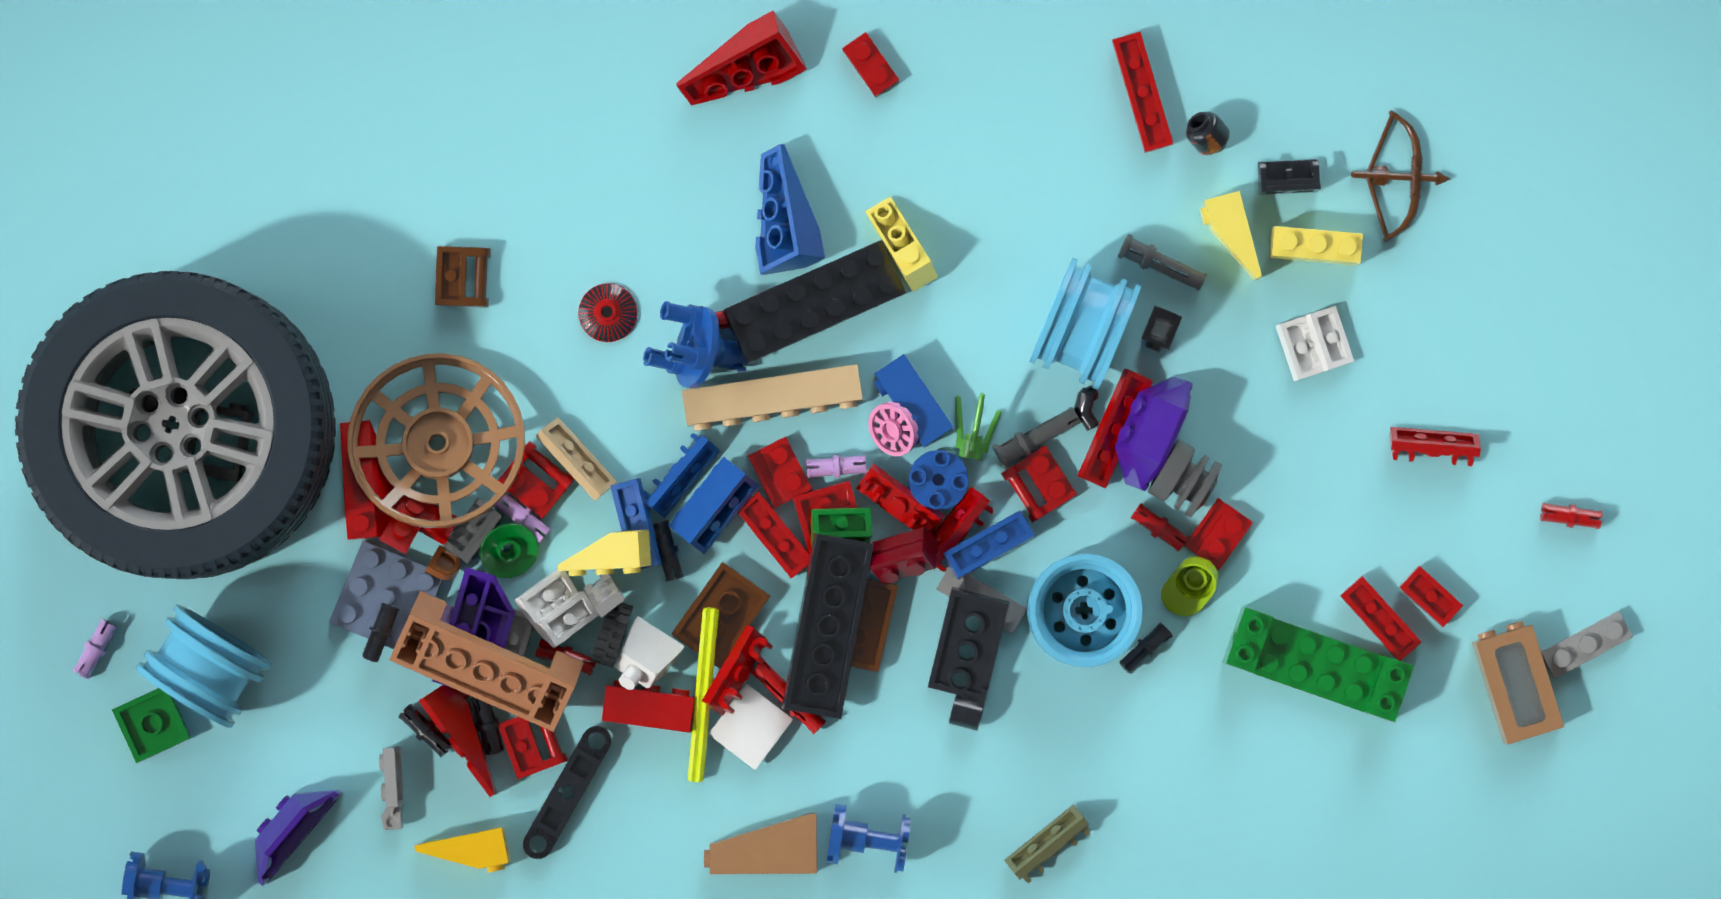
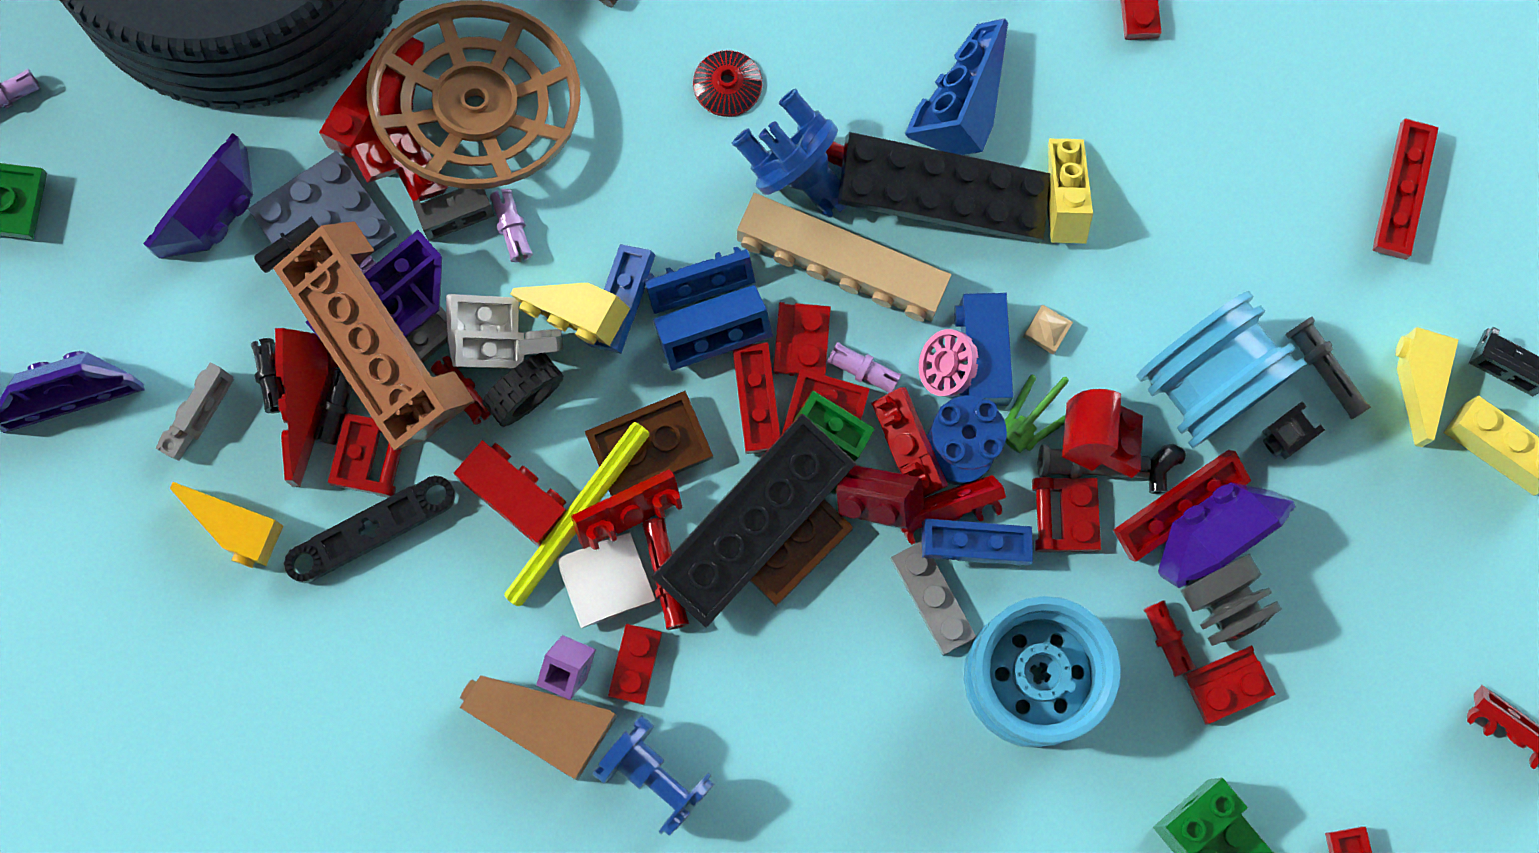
camera: 25 degrees right, 10 degrees down
(203, 666) = (82, 162): medium azure wheel -> none
(300, 637) = (206, 205): none -> dark purple wedge
(444, 564) = (400, 221): dark orange tile -> none
(516, 558) = (472, 263): green dish -> none
(531, 489) = (539, 204): red plate -> none
(576, 458) = (602, 198): tan plate -> none
(646, 655) = (544, 435): white torso -> none
(667, 551) = (635, 348): black pin -> none
(763, 803) = (565, 667): none -> medium lavender brick
(806, 771) = (635, 664): none -> red plate
(948, 356) = (1047, 329): none -> tan tile
(969, 698) = (856, 696): black hinge -> none
(1030, 413) = (1102, 432): none -> red brick
(1146, 648) = (1080, 759): black axle -> none
(1190, 586) = (1167, 721): lime cap -> none
(1207, 133) = (1454, 265): black head -> none
(1314, 343) = (1446, 547): white slope -> none

